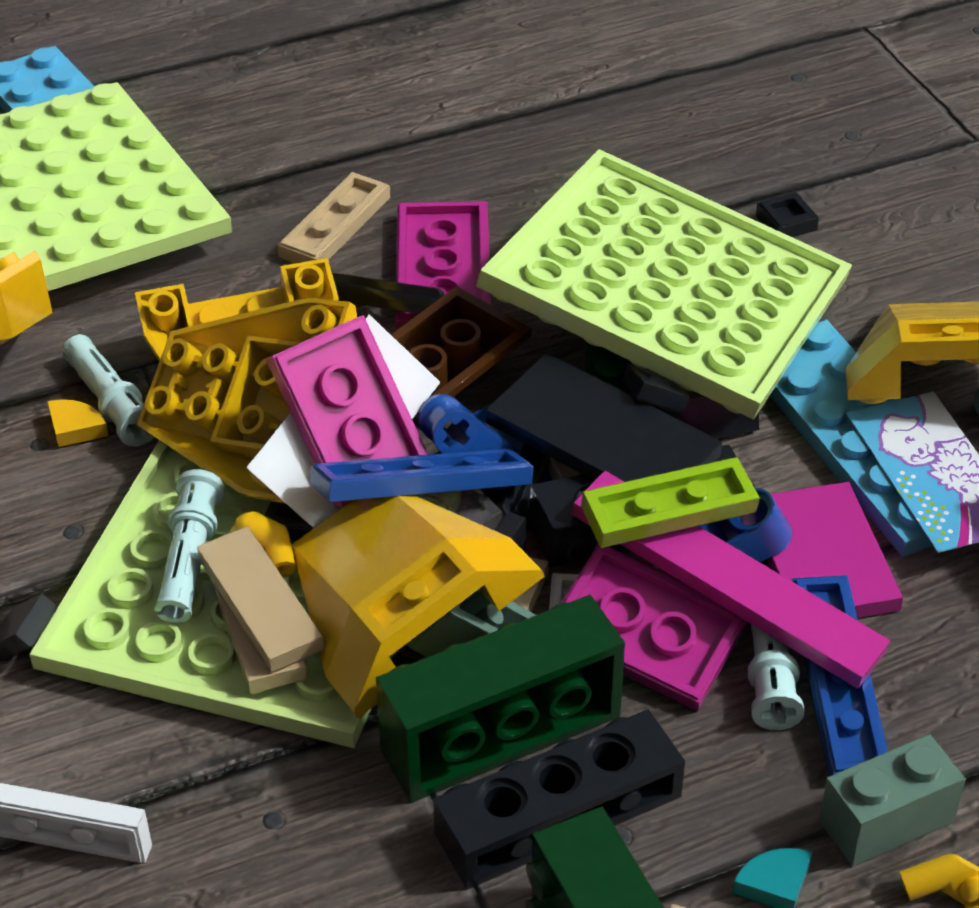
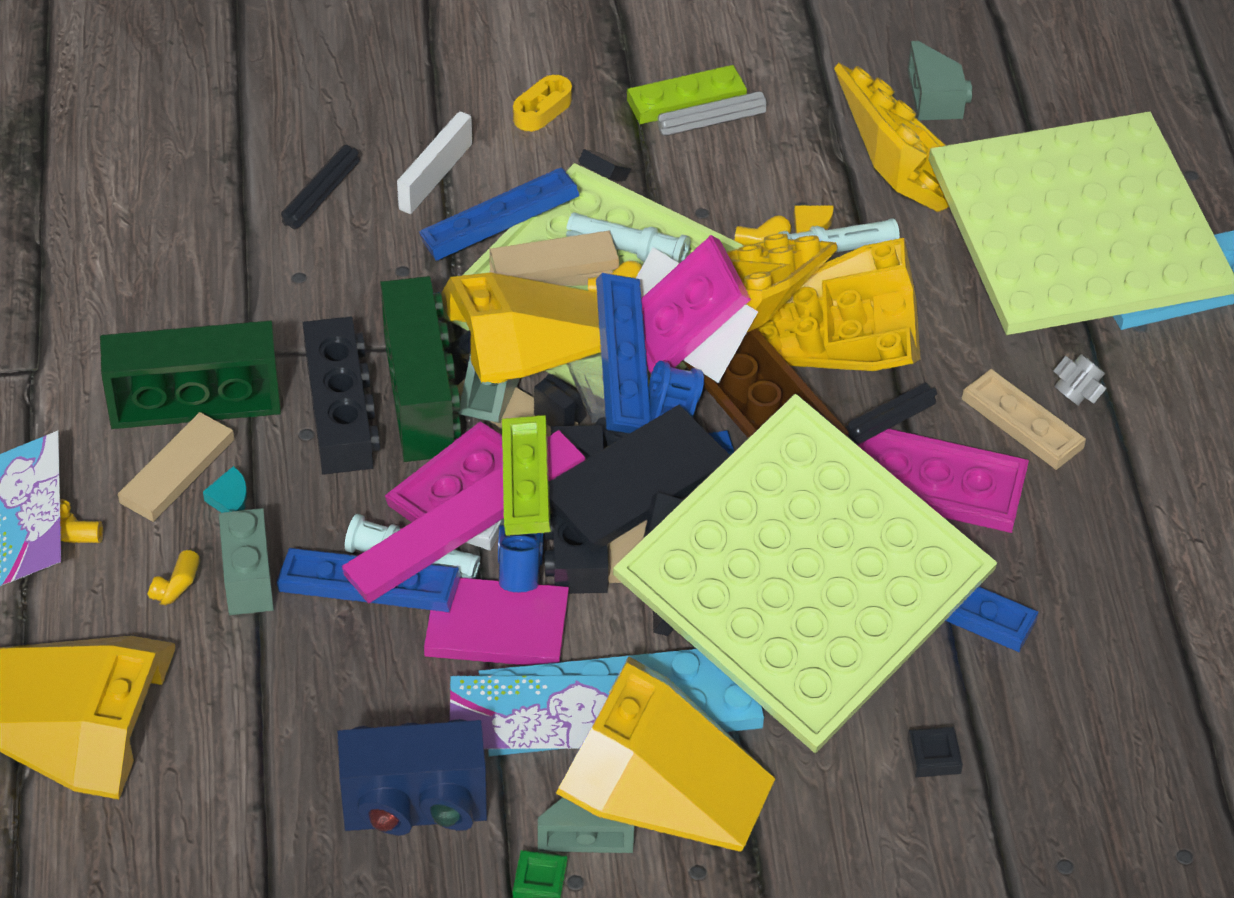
camera: 105 degrees right, 5 degrees up
(117, 456) = (751, 236): none -> yellow arm
(159, 710) = (498, 213): none -> blue tile
(279, 176) = (1079, 379): none -> light grey gear

